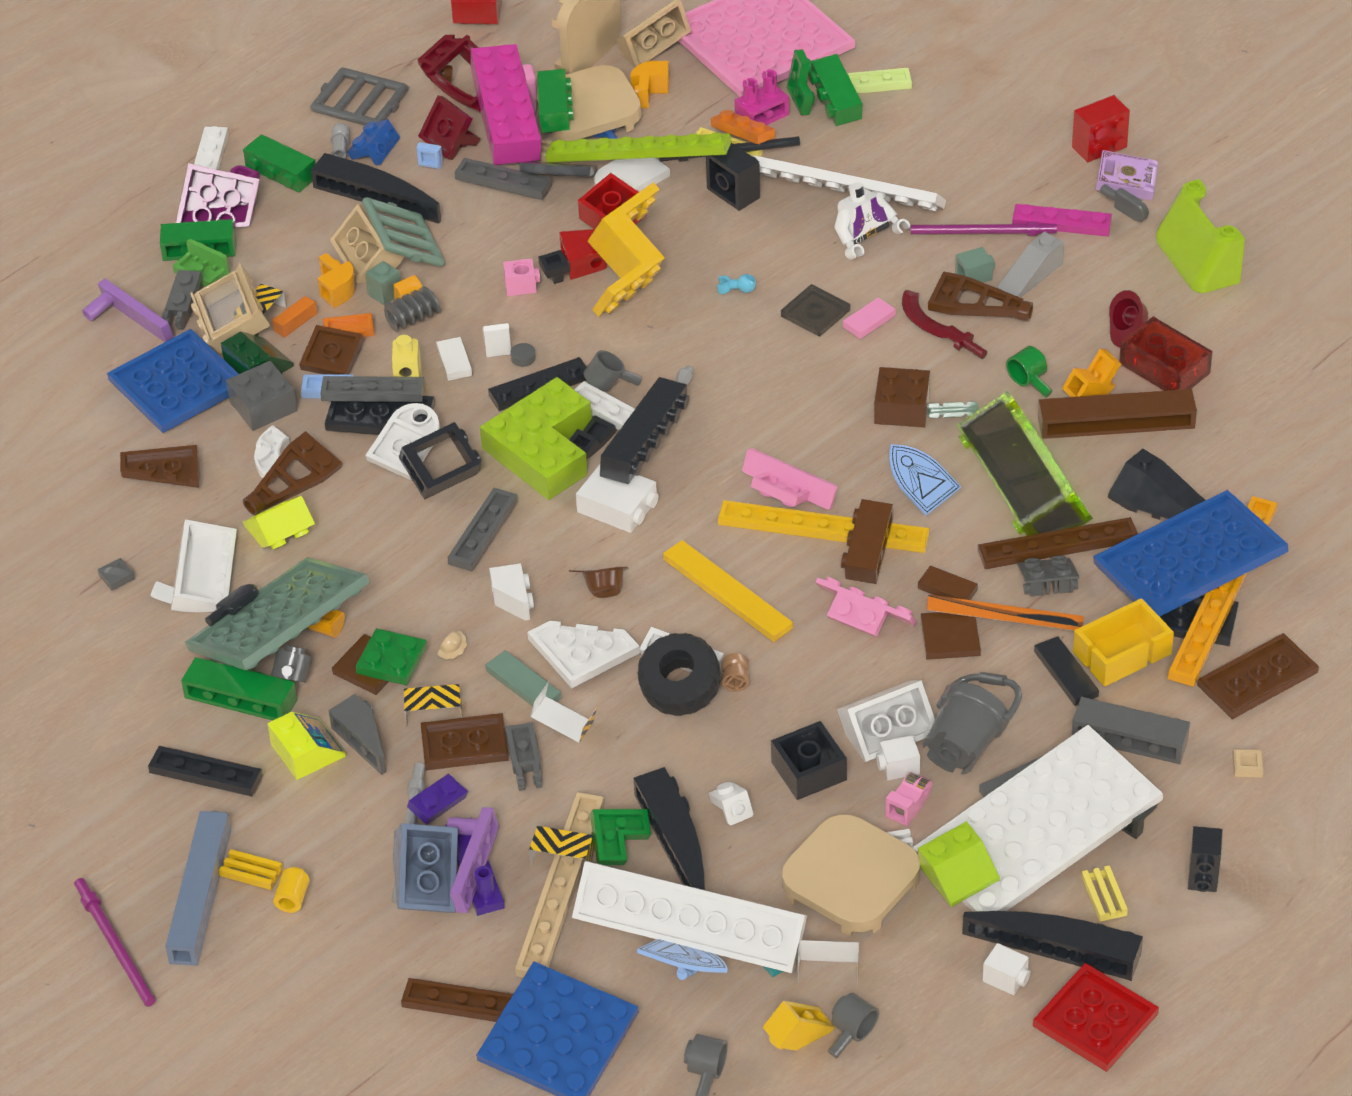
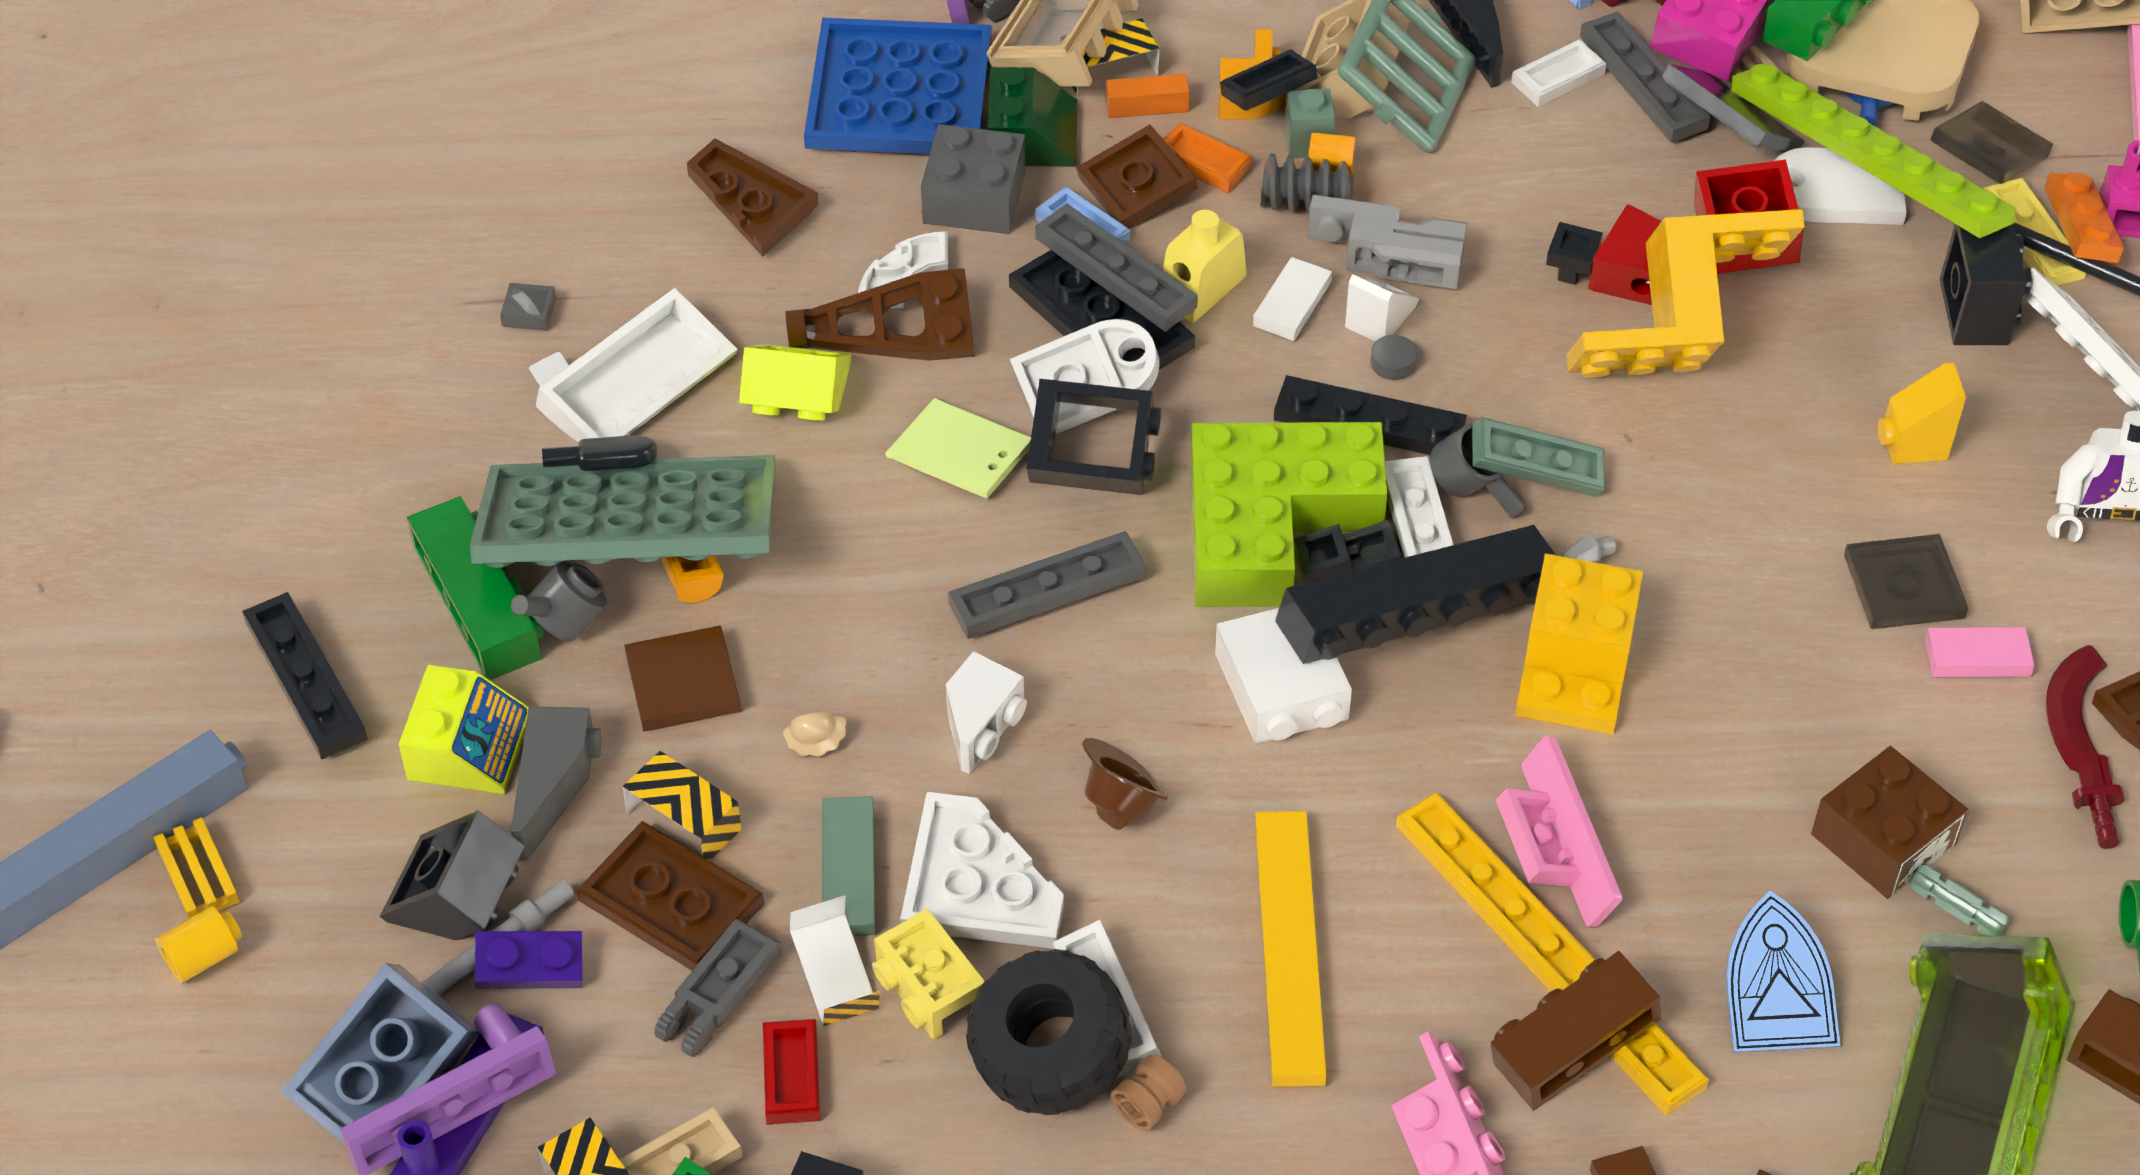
camera: 40 degrees right, 5 degrees up
(353, 273) = (1268, 80): none -> black tile
(369, 793) = (455, 878): none -> black slope
(380, 504) = (960, 448): none -> yellowish green container
(391, 656) = (709, 688): green plate -> none
(462, 199) = (1558, 73): none -> white tile
(472, 312) = (1388, 246): none -> light grey plate
(520, 277) = (1509, 237): bright pink brick -> none
(587, 764) = (791, 1072): none -> red tile
(604, 690) = (925, 971): none -> light yellow bracket
(631, 351) = (1538, 457): none -> sand green tile
(650, 78) = (2014, 56): light orange brick -> none
(674, 120) = (1991, 142): none -> clear smoke tile
(722, 409) = (1579, 643): none -> yellow bracket
(745, 283) = (1834, 464): medium azure arm -> none
(764, 241) = (1924, 417): none -> yellow slope

